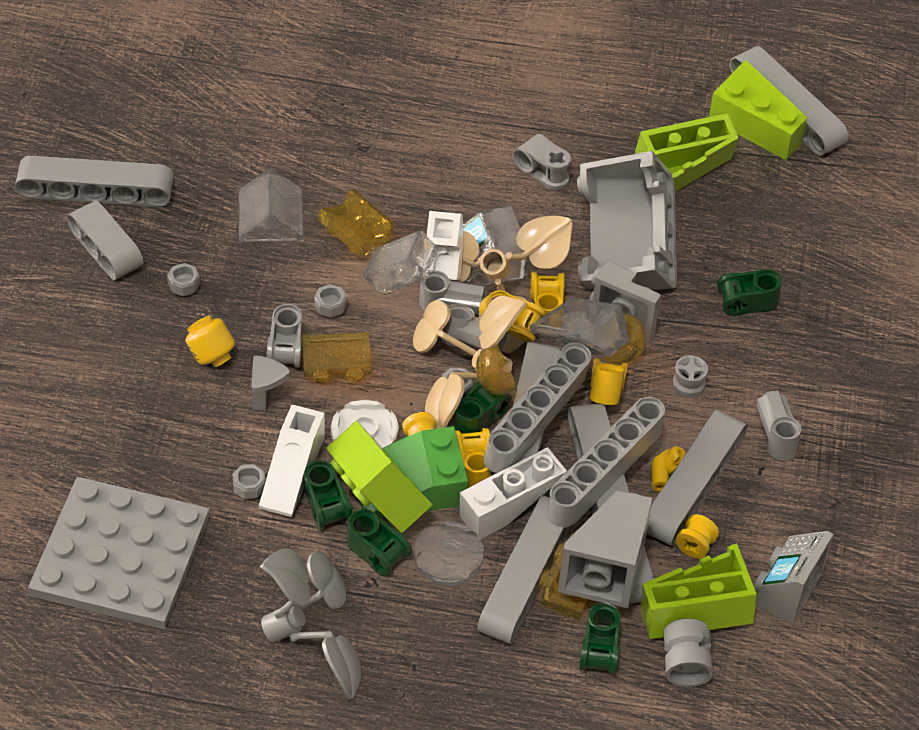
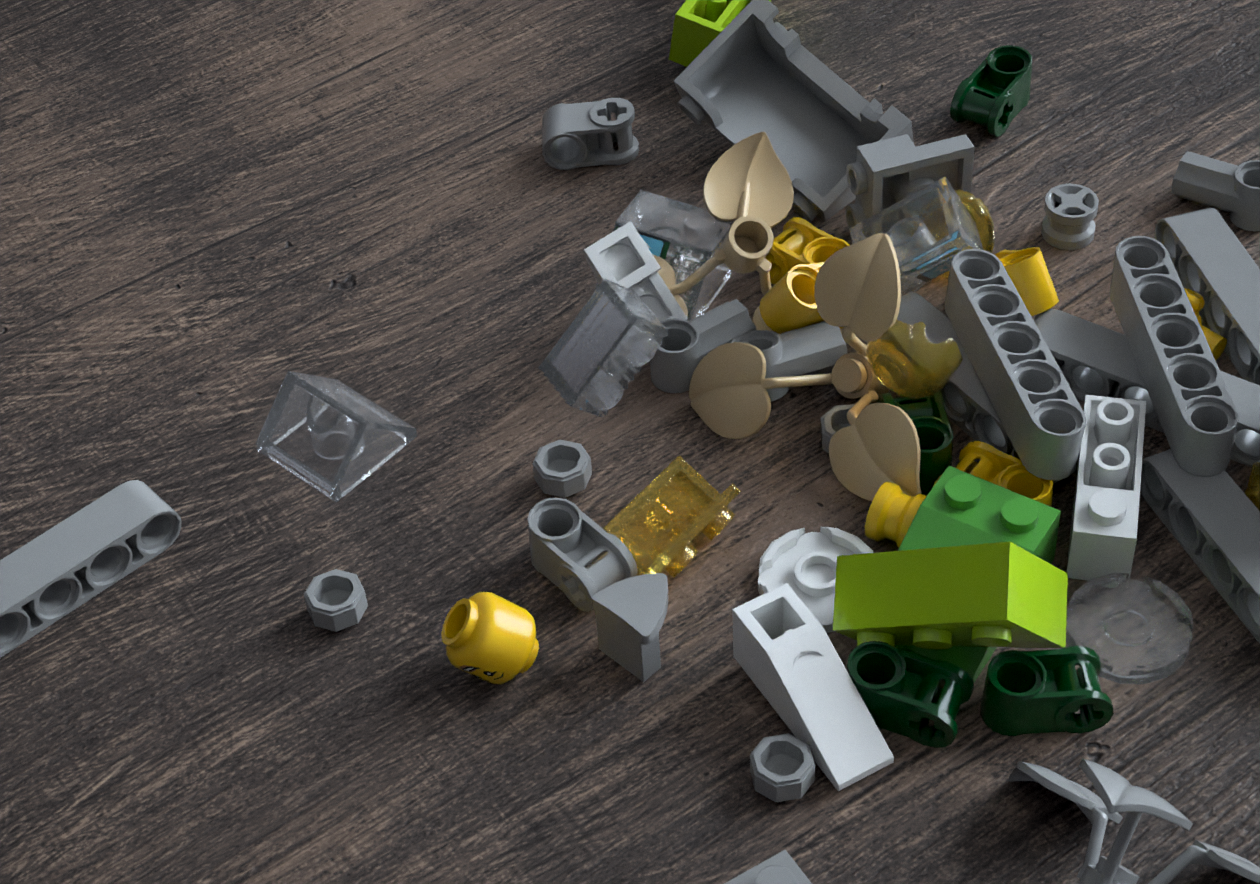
camera: 40 degrees left, 5 degrees down
(105, 240) = (158, 641): light grey beam -> none
(357, 224) = (474, 355): clear yellow bracket -> none

